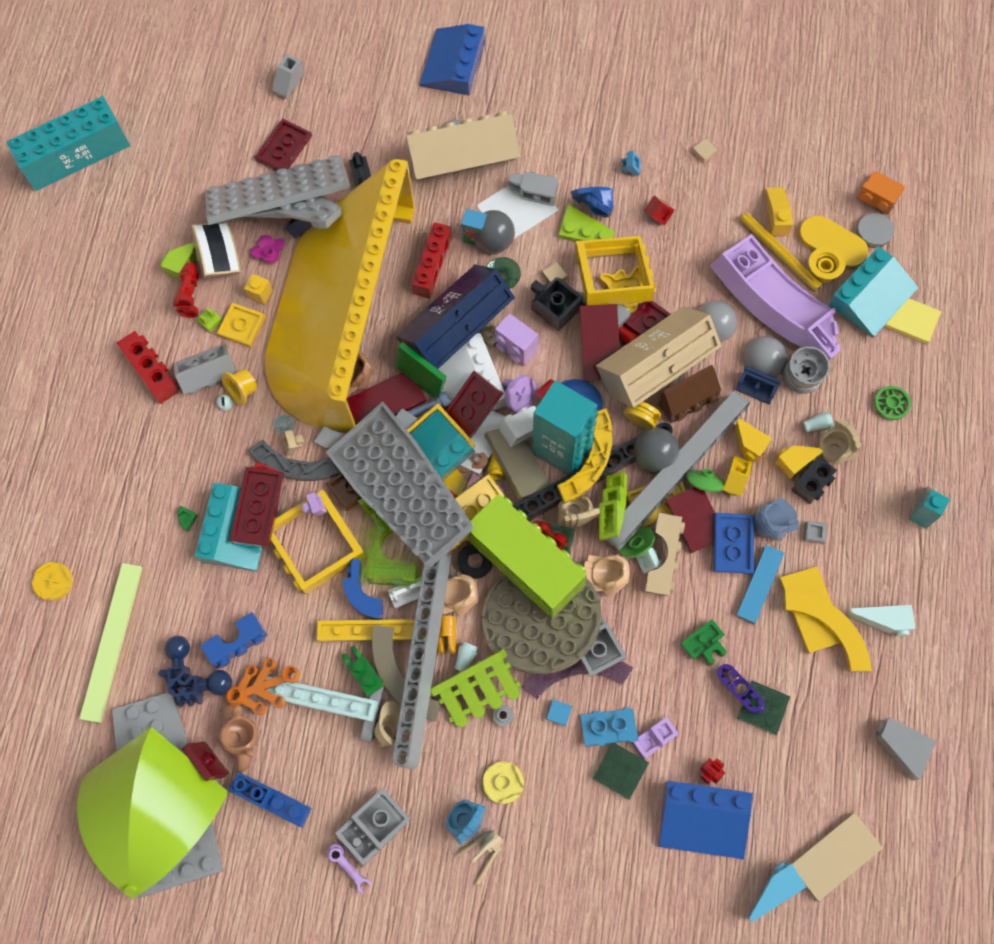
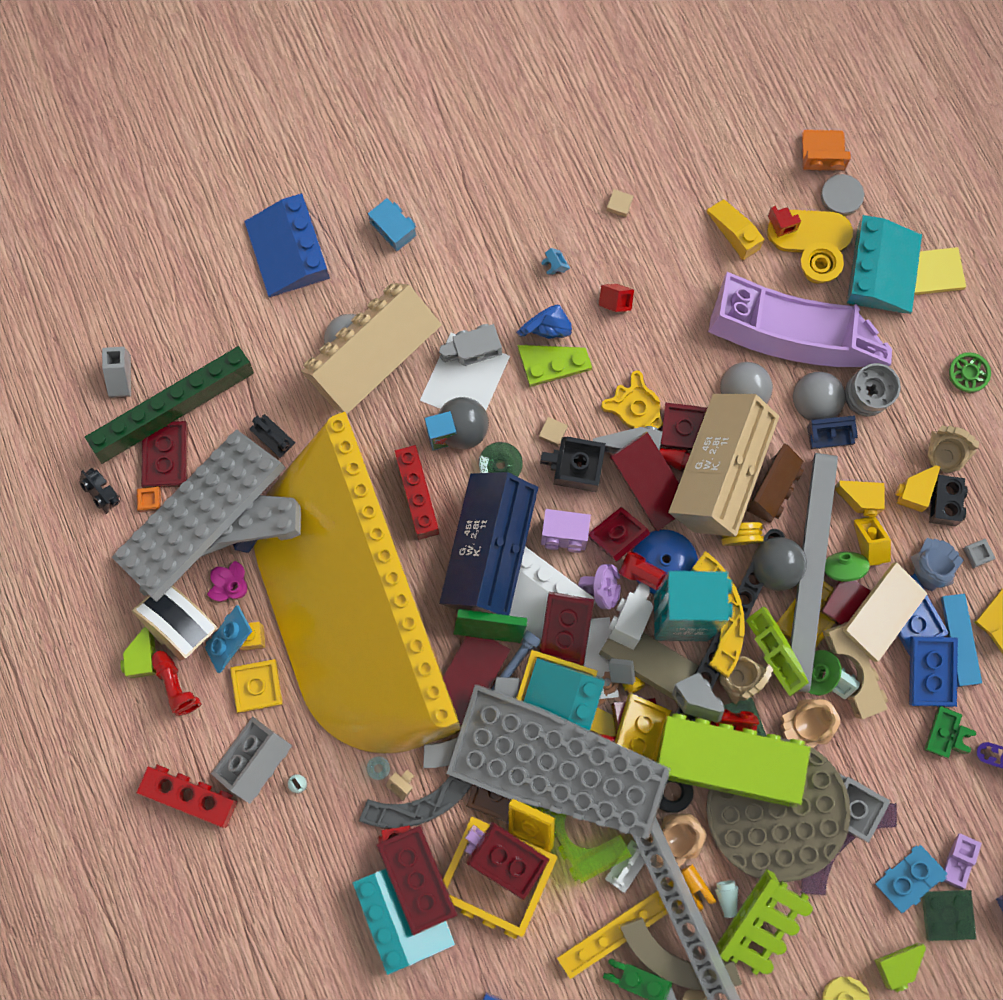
camera: 35 degrees left, 5 degrees up
(186, 518) = (342, 935): green tile -> none
(209, 319) = (217, 701): lime tile -> none
(224, 150) = (92, 482): none -> black hinge
(239, 385) = (305, 757): yellow piece -> none
(241, 280) = (228, 639): none -> dark azure piece
(253, 168) = (148, 499): none -> orange tile
(306, 113) = (169, 404): none -> dark green brick
(325, 529) = (507, 861): none -> dark red tile
(358, 518) = (531, 825): none -> yellow tile
(365, 605) = (589, 910): blue arch -> none
(488, 334) = (534, 538): tan tile -> none
(491, 454) = (622, 671): none -> light grey tile
(503, 722) = (810, 938): light grey plate -> none
(531, 500) = (697, 699): none -> light grey slope
(534, 81) = (392, 224): none -> dark azure brick
(553, 365) = (618, 534): none -> dark red tile
(558, 782) = (901, 966): none -> lime slope
(559, 712) = (854, 895): dark azure tile -> none
(615, 246) = (616, 351): yellow window -> none
(711, 524) = (885, 612): none -> tile
(723, 591) = (933, 671): none -> blue tile
(781, 251) = (764, 272): yellow axle -> none
(816, 222) = (783, 221): none -> red panel
(819, 422) = (915, 436): light aqua cone -> none

